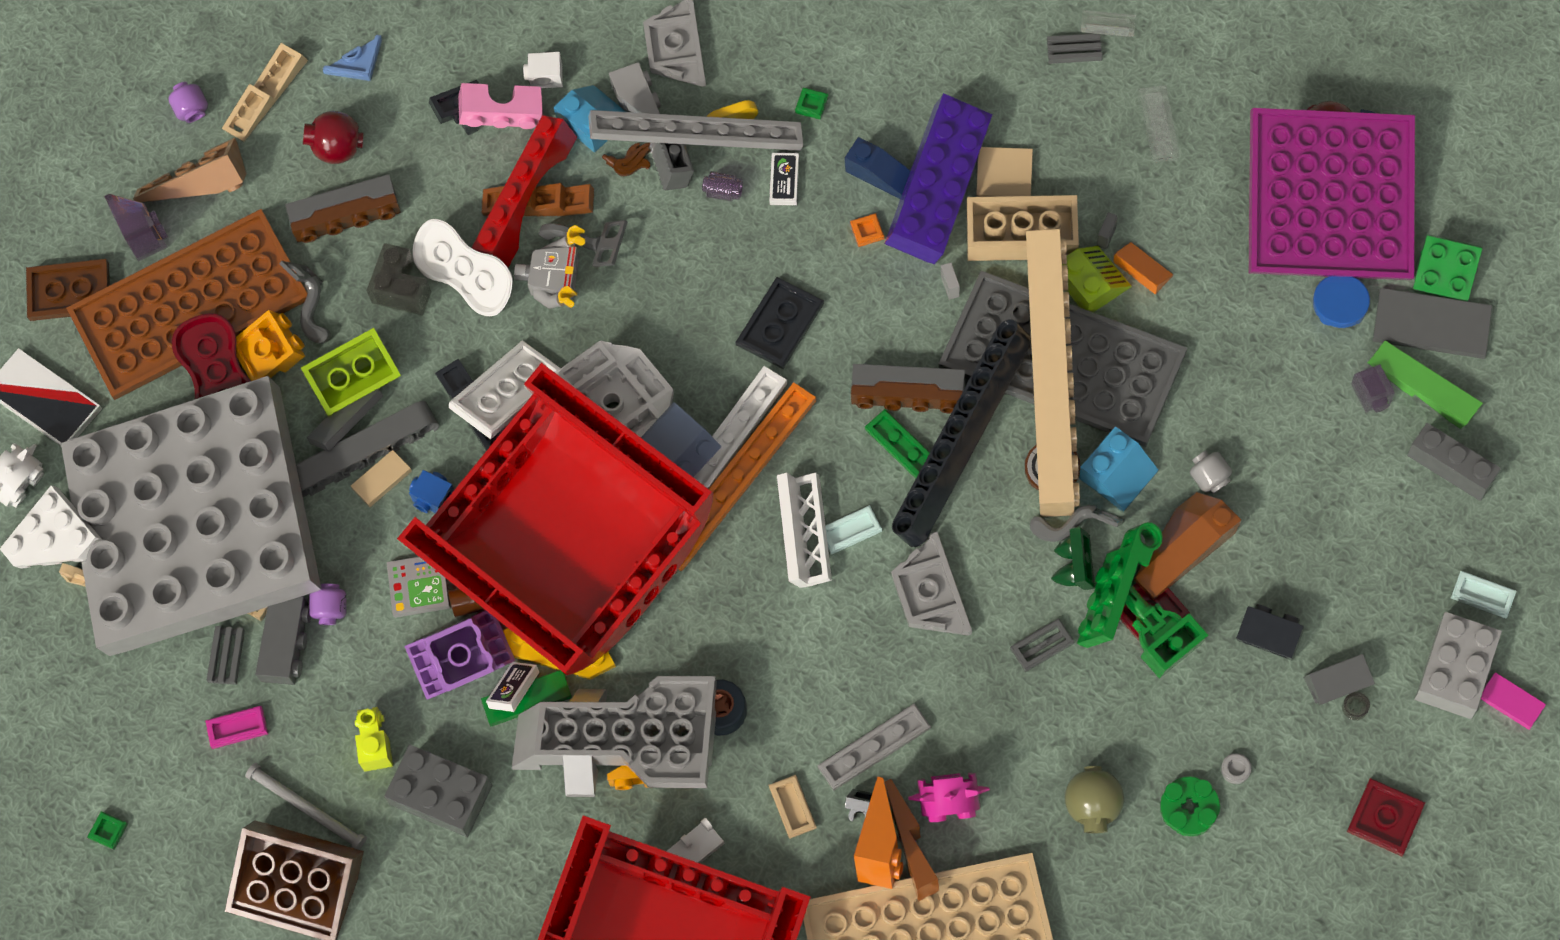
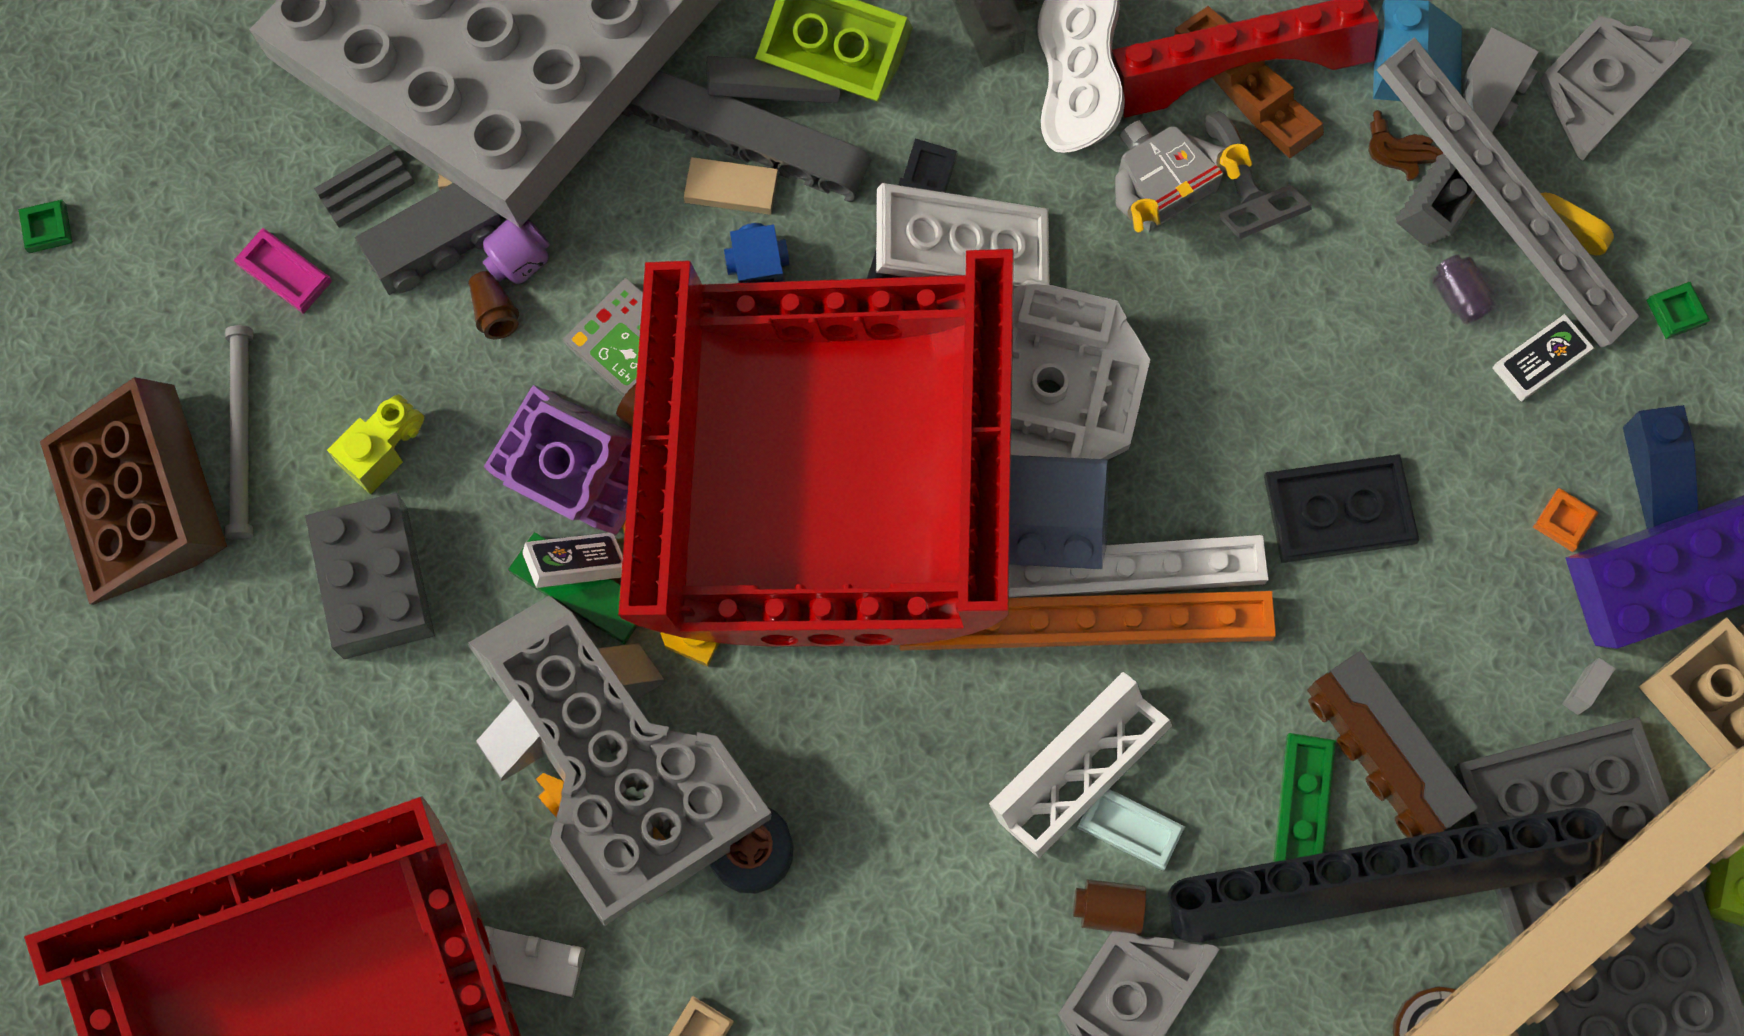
camera: 45 degrees right, 5 degrees up
(346, 636) = (492, 307): none -> reddish brown cone
(879, 564) = (1110, 906): none -> reddish brown brick

